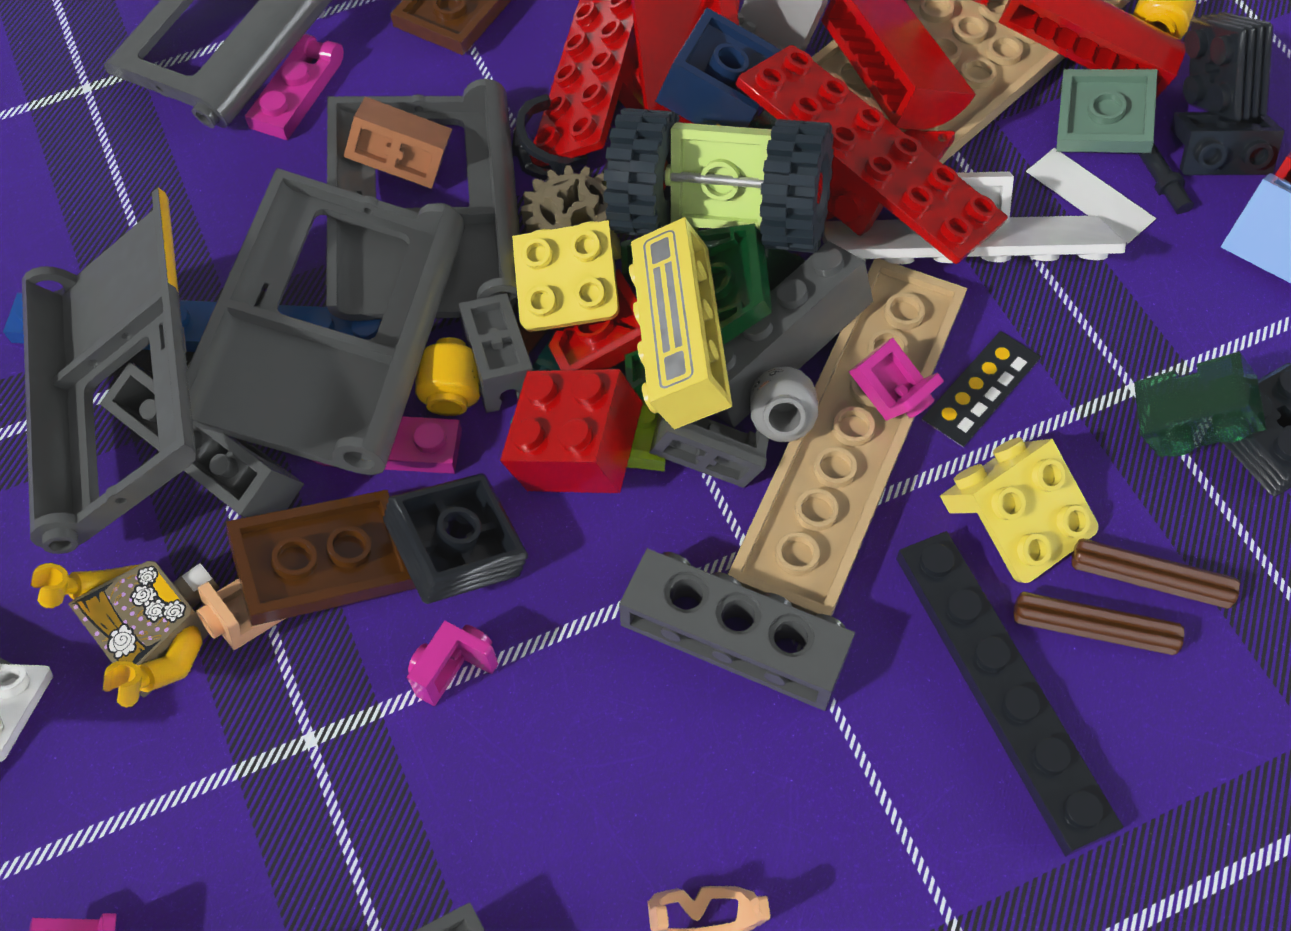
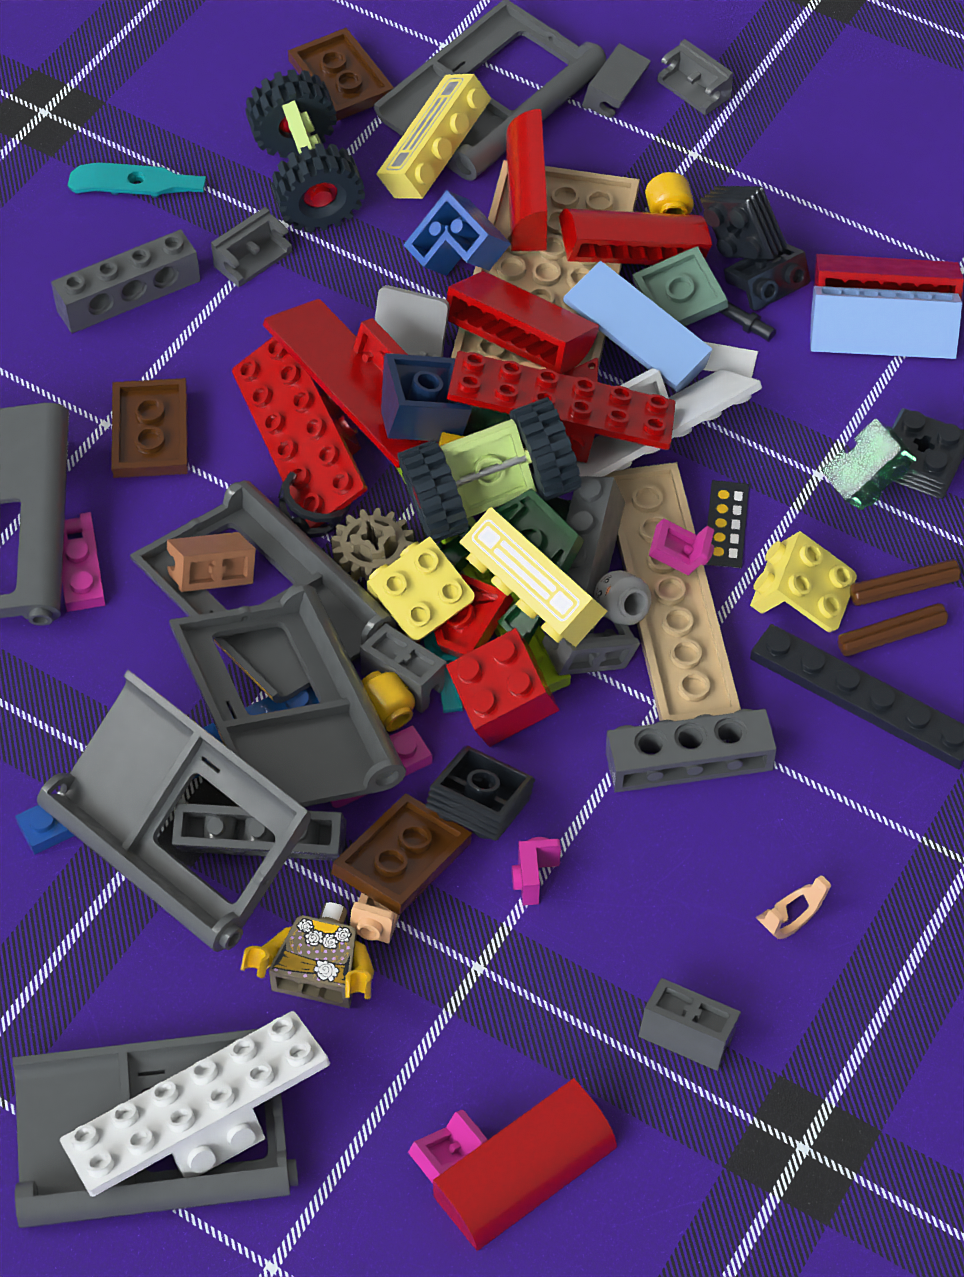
camera: 35 degrees left, 5 degrees down
(1027, 123) = (639, 326): none -> light blue brick

